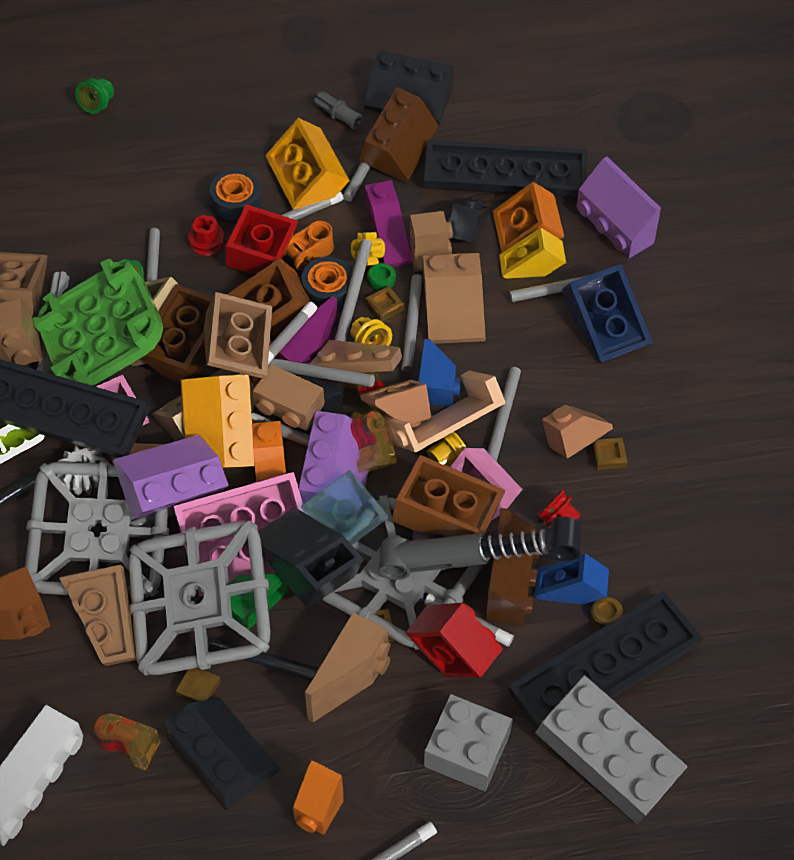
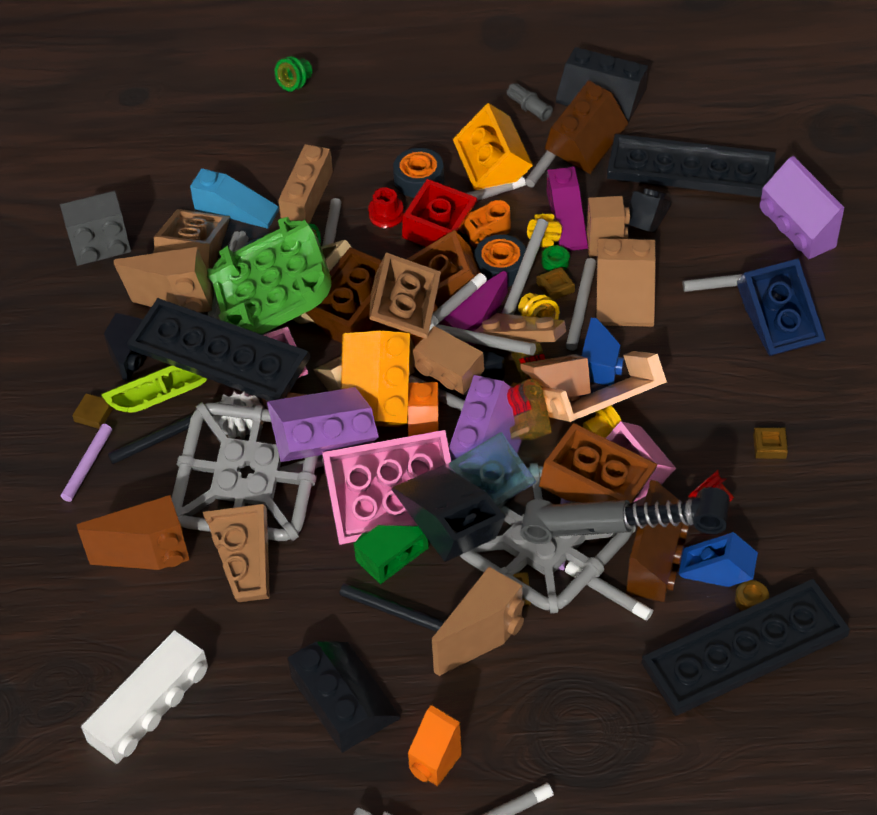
camera: 10 degrees right, 5 degrees down
(41, 235) = (223, 195): none -> dark azure slope
(122, 217) = (306, 184): none -> medium nougat brick
(127, 736) = (252, 670): clear yellow leg -> none
(198, 685) = (327, 627): pearl gold tile -> none
(214, 608) = (349, 555): light grey plate -> none
(454, 640) = (590, 604): red brick -> none
(467, 742) = (594, 708): light grey brick -> none
(503, 412) = (665, 394): light grey bar -> none
(526, 213) = (709, 216): orange slope -> none
(533, 256) = (710, 248): yellow slope -> none
(573, 429) = (733, 415): nougat slope -> none
(611, 749) = (742, 728): light grey brick -> none

